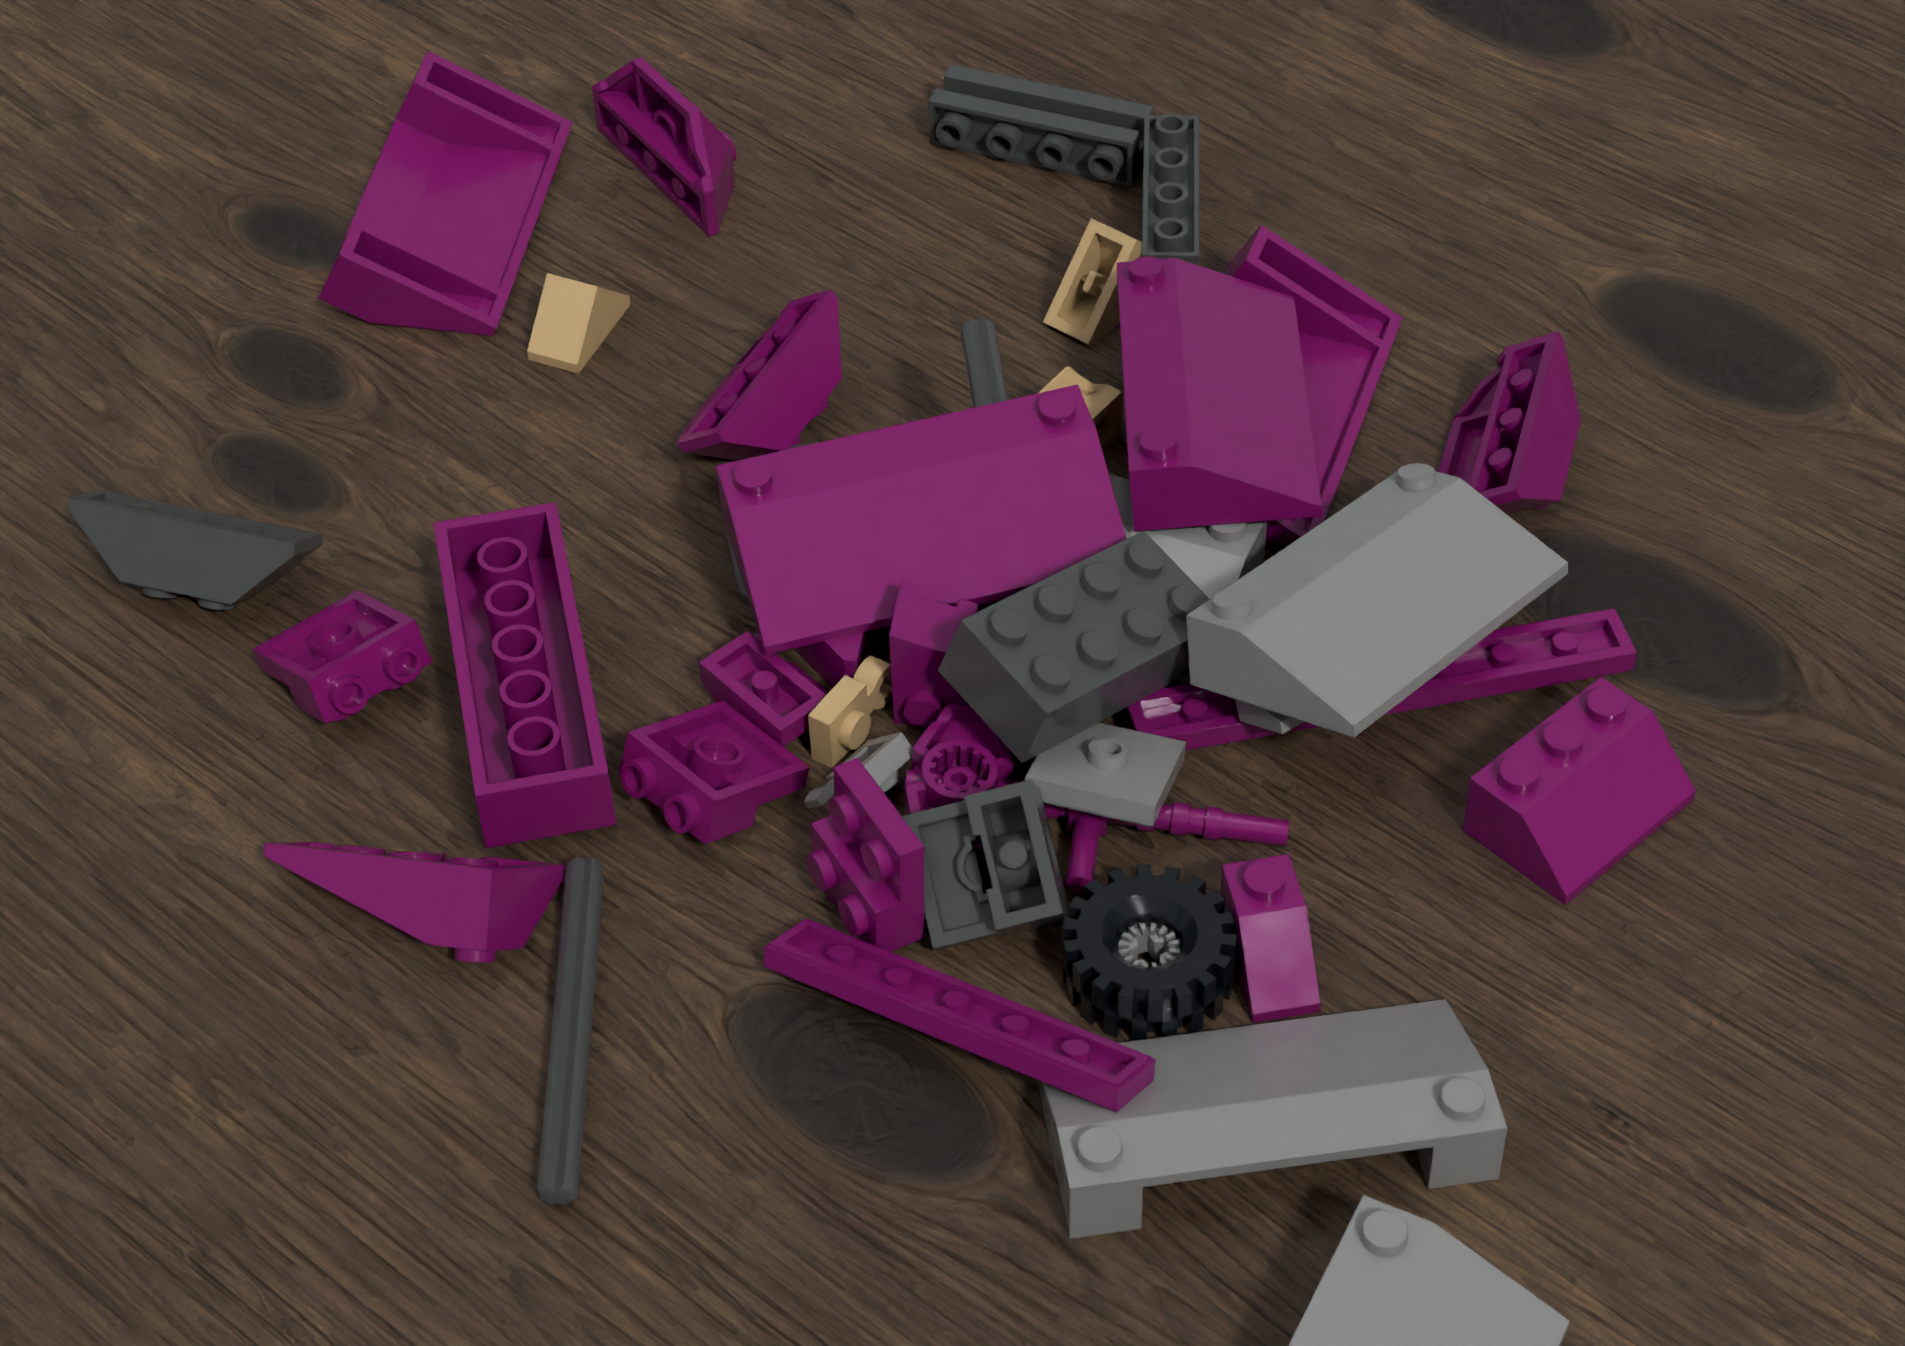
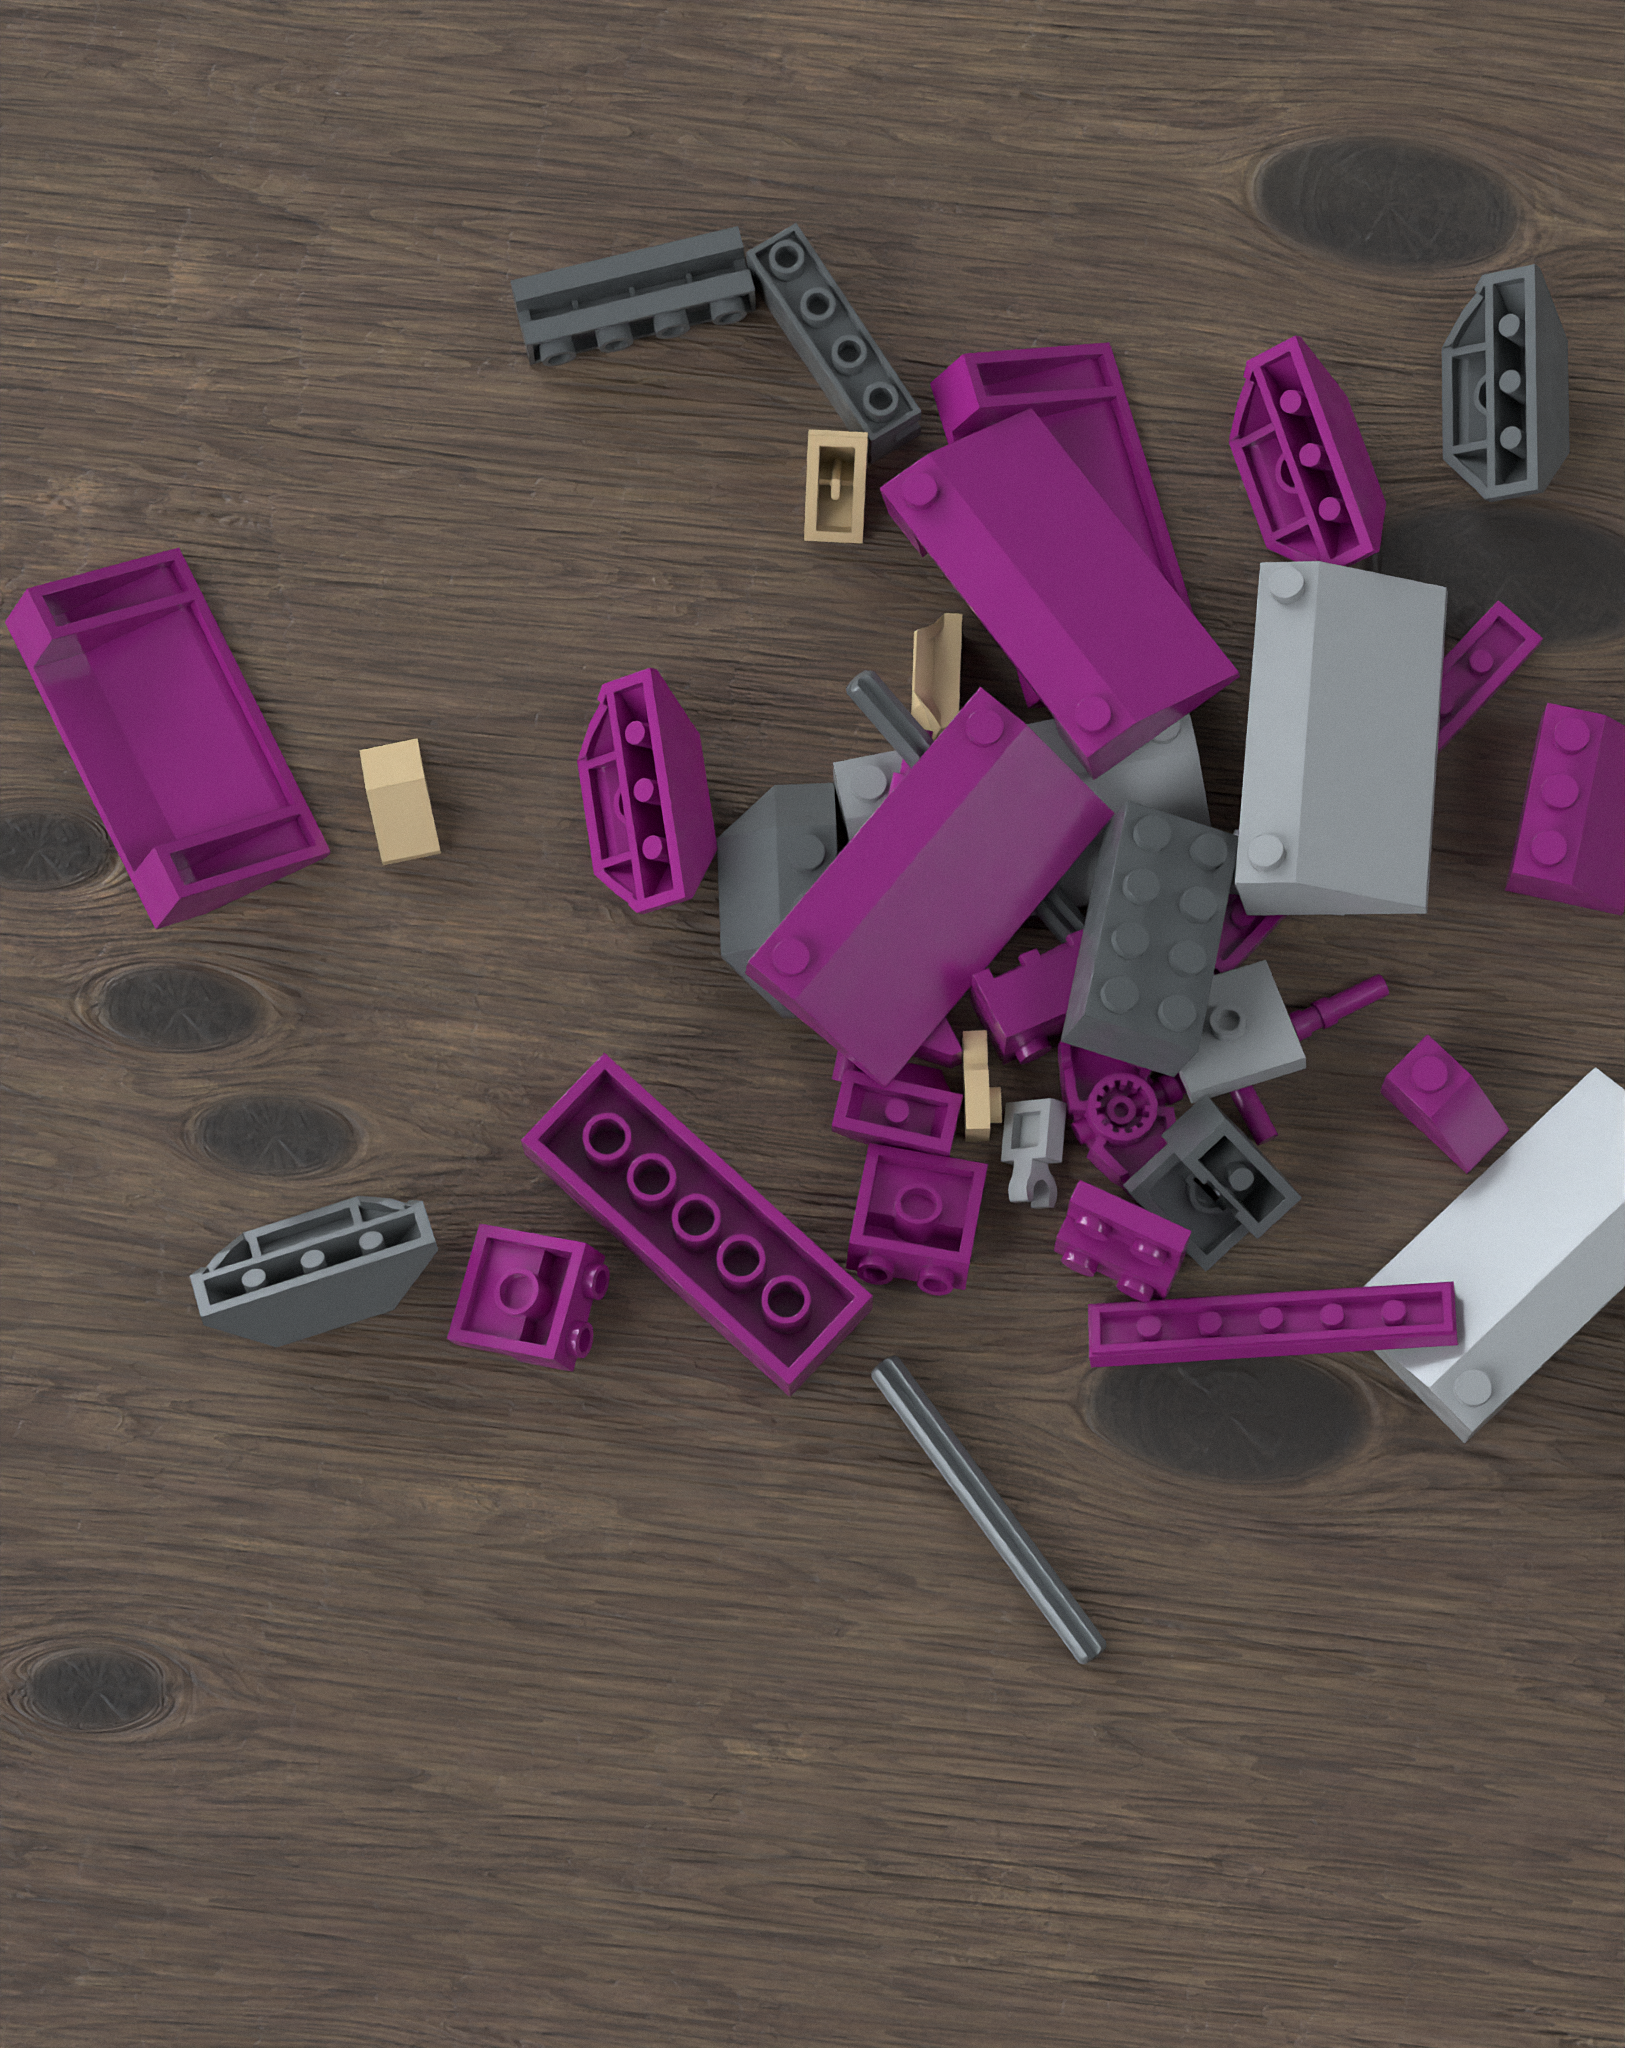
camera: 35 degrees left, 30 degrees up
(436, 899) = (806, 1469): magenta wedge -> none
(667, 141) = (317, 535): magenta wedge -> none
(1157, 917) = (1359, 1134): black bush -> none
(1742, 470) = (1506, 387): none -> dark grey wedge

